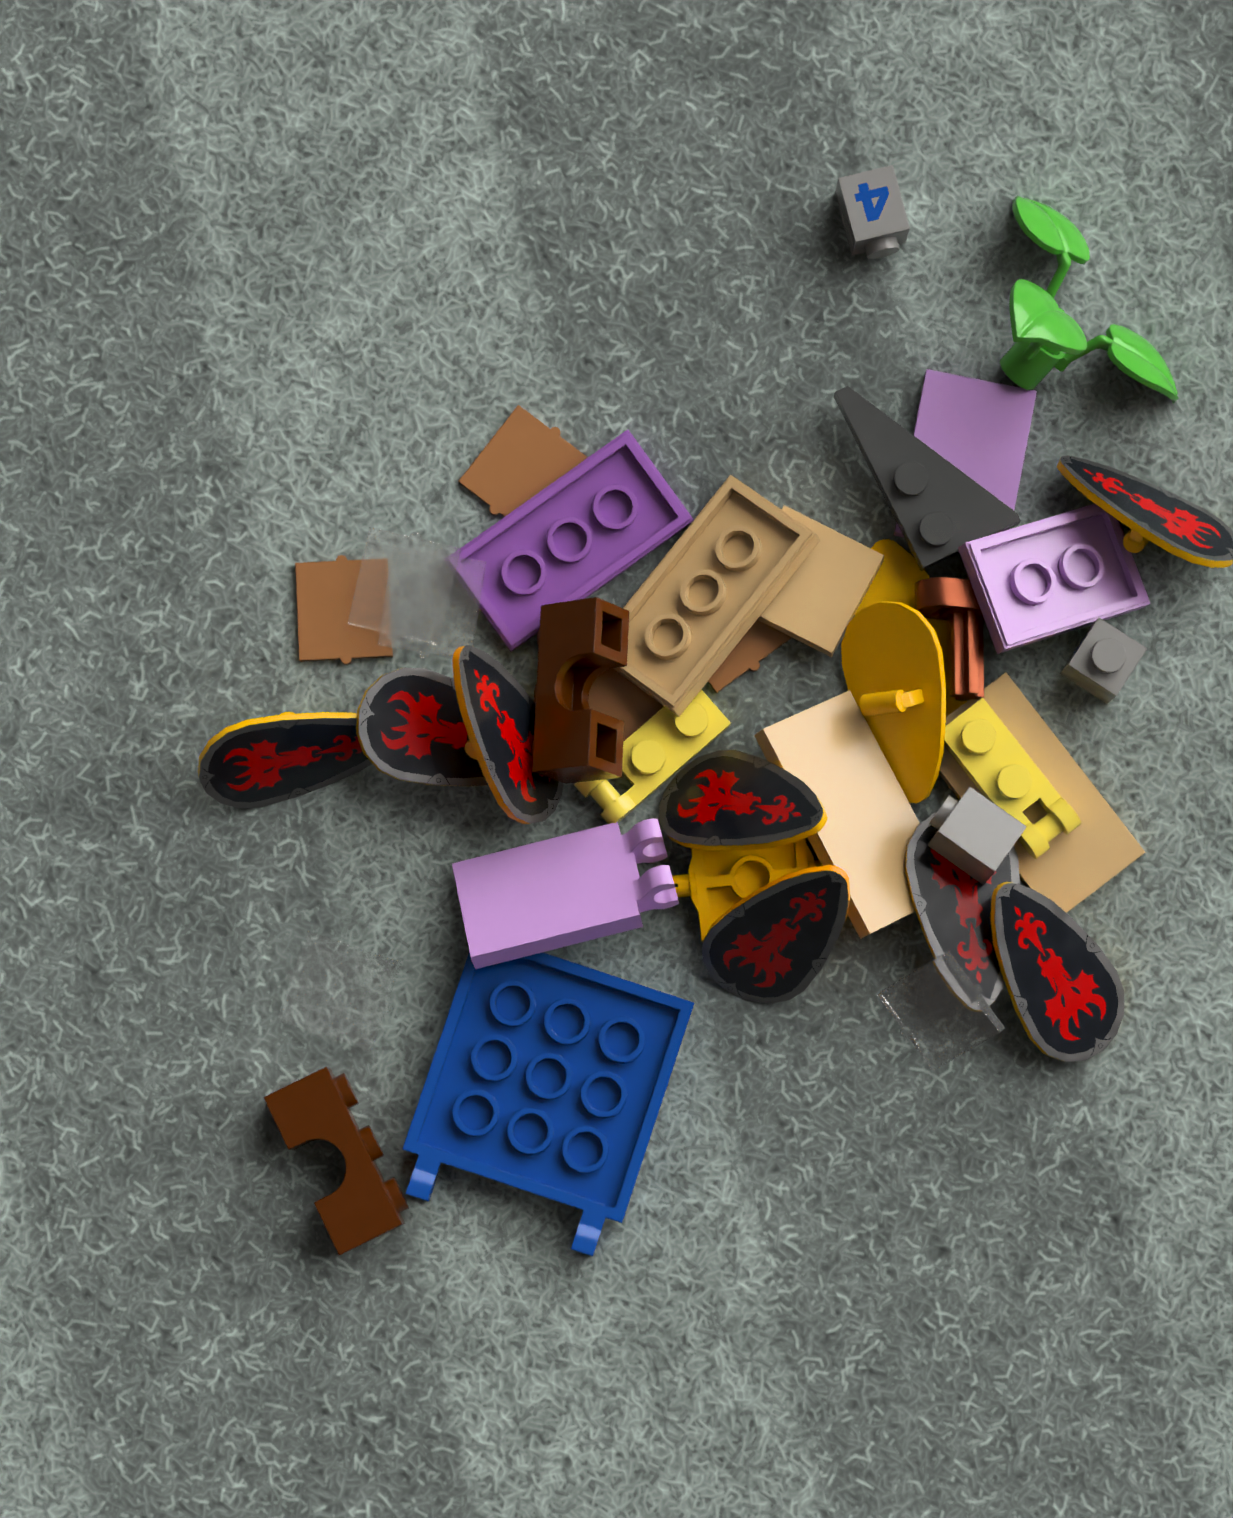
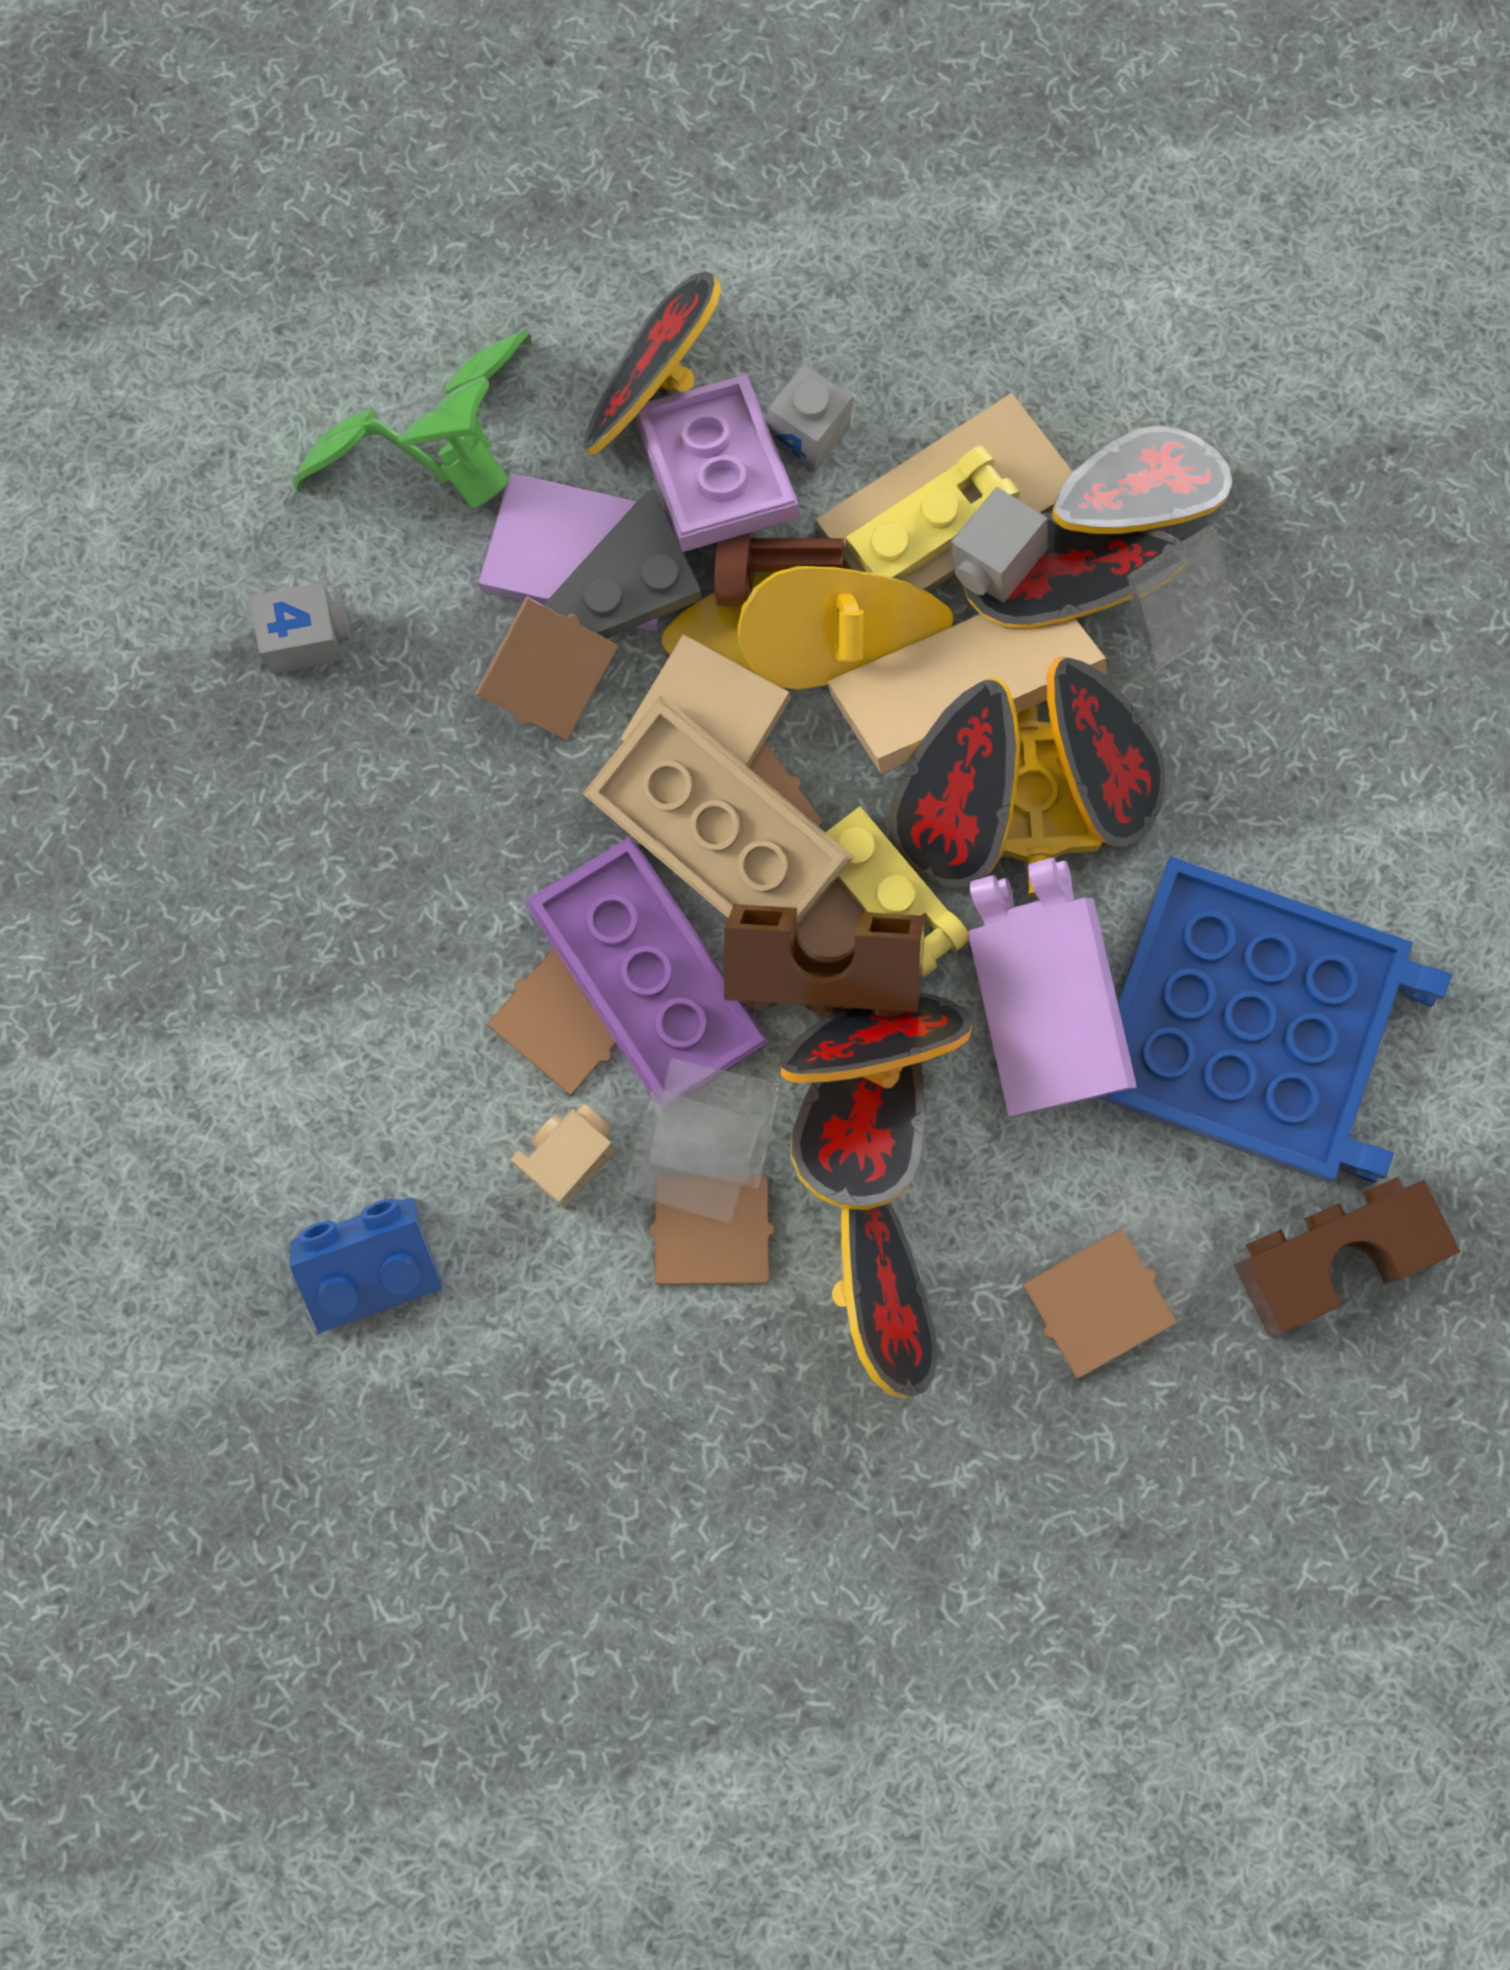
camera: 85 degrees left, 5 degrees down
(290, 946) = (1099, 1303): none -> medium nougat piece
(302, 313) = (363, 1263): none -> blue bracket
(401, 478) = (566, 1153): none -> tan brick
(841, 433) = (546, 668): none -> medium nougat piece

